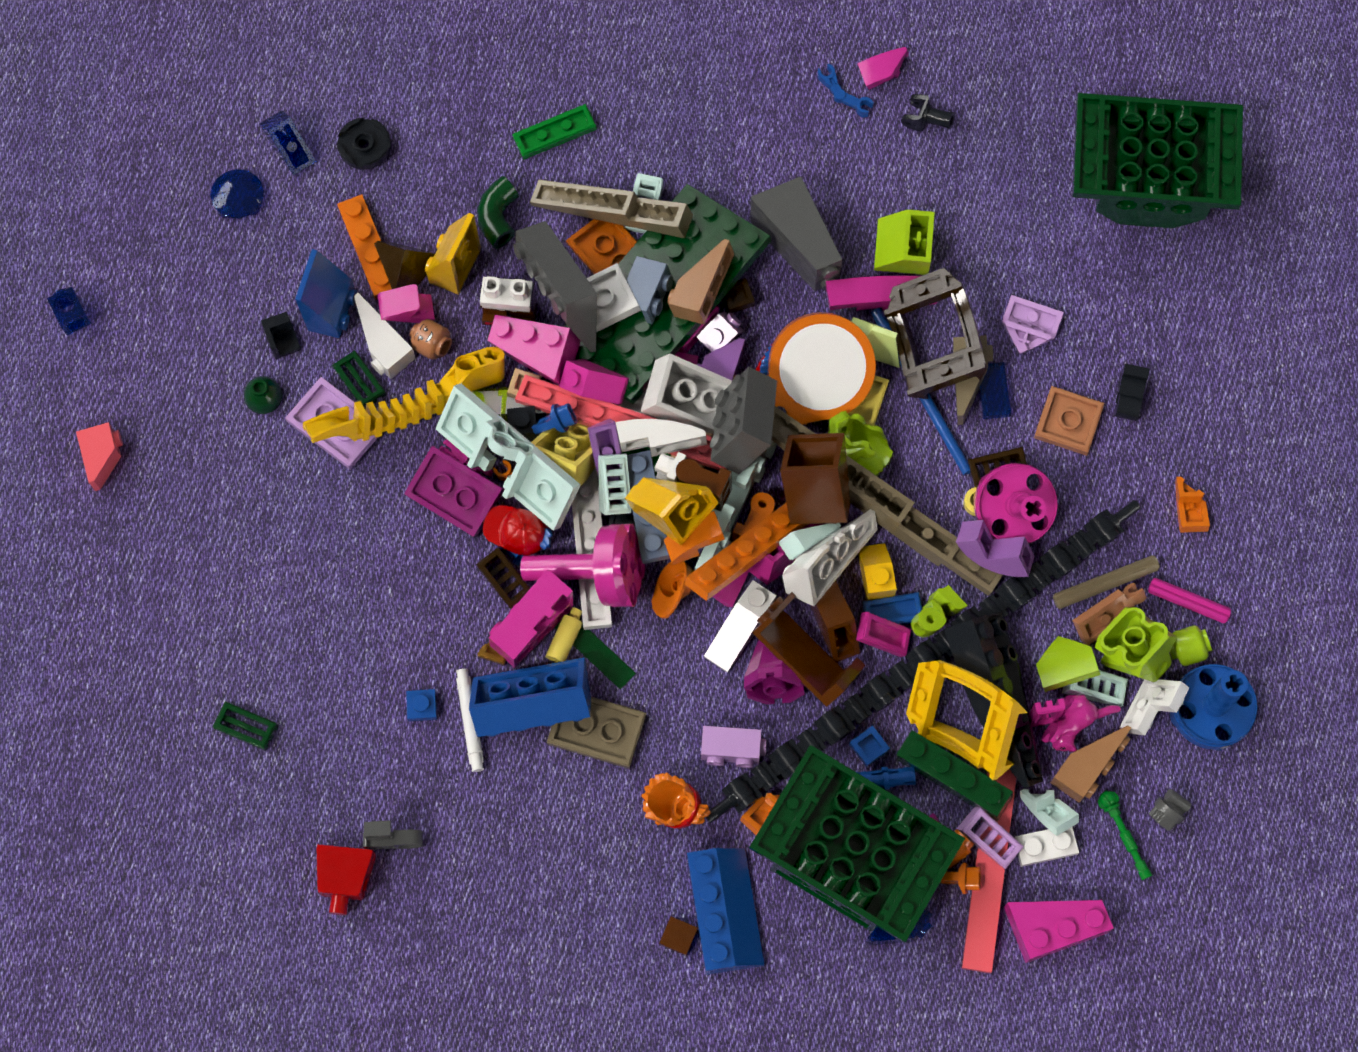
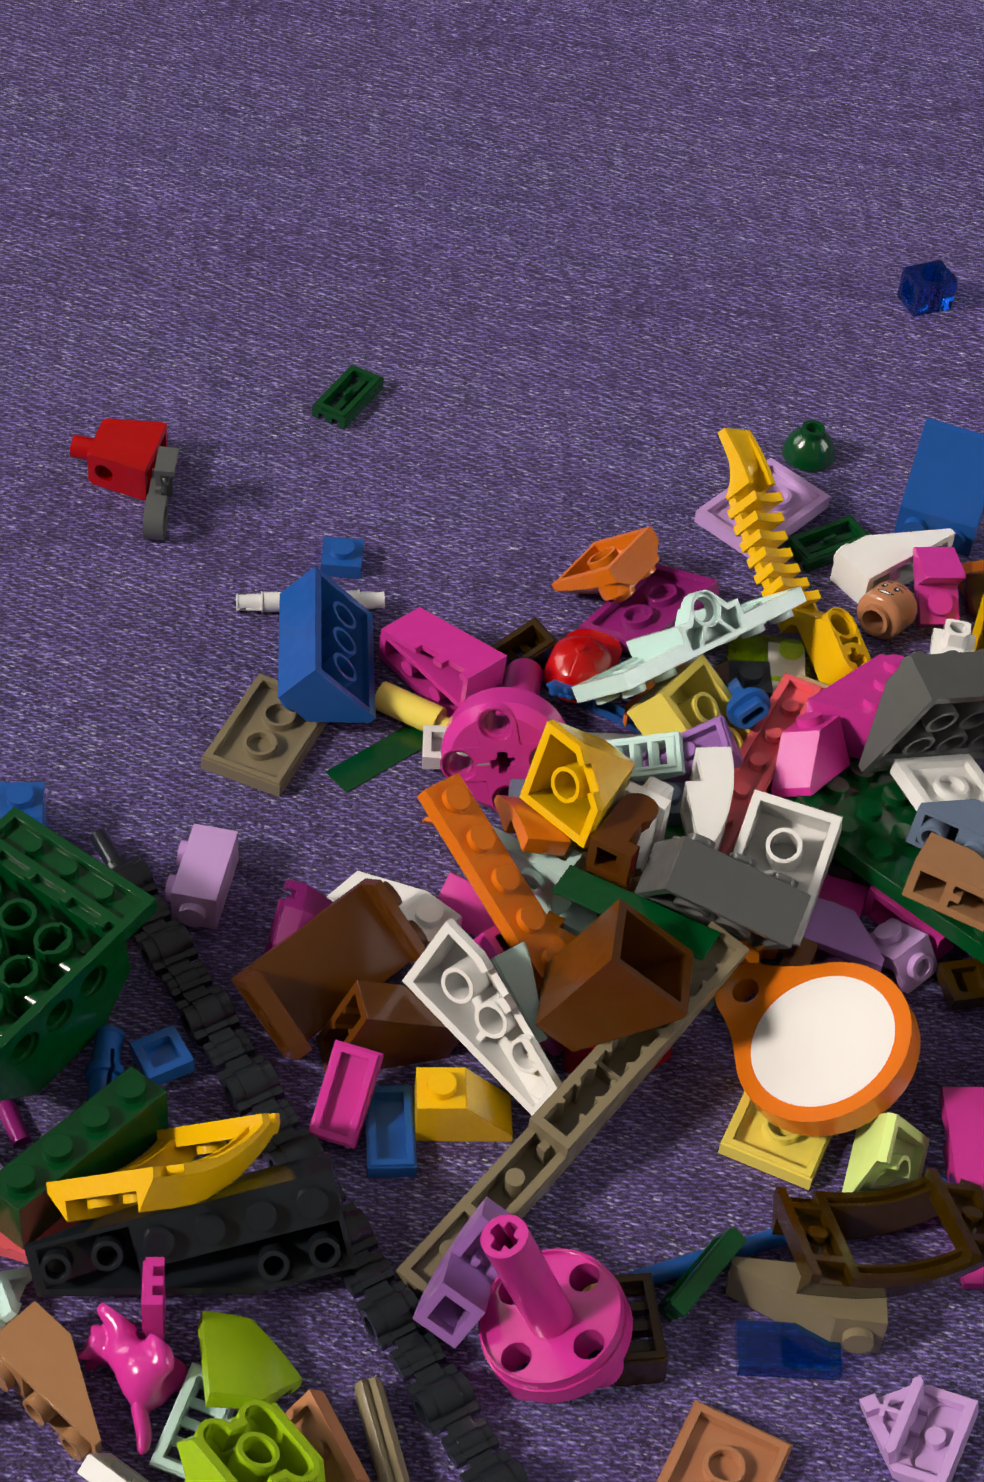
camera: 90 degrees right, 25 degrees down
(99, 452) = (728, 297): coral slope -> none
(281, 335) = (889, 465): black panel -> none
(422, 518) = (612, 566): none -> orange slope
(673, 802) = (129, 787): orange hair -> none
(754, 477) = (600, 895): none -> dark green sticker
(864, 442) = (687, 1104): lime hair -> none
(932, 616) = (360, 1167): lime leg -> none
(966, 432) = (701, 1274): none -> dark green tile

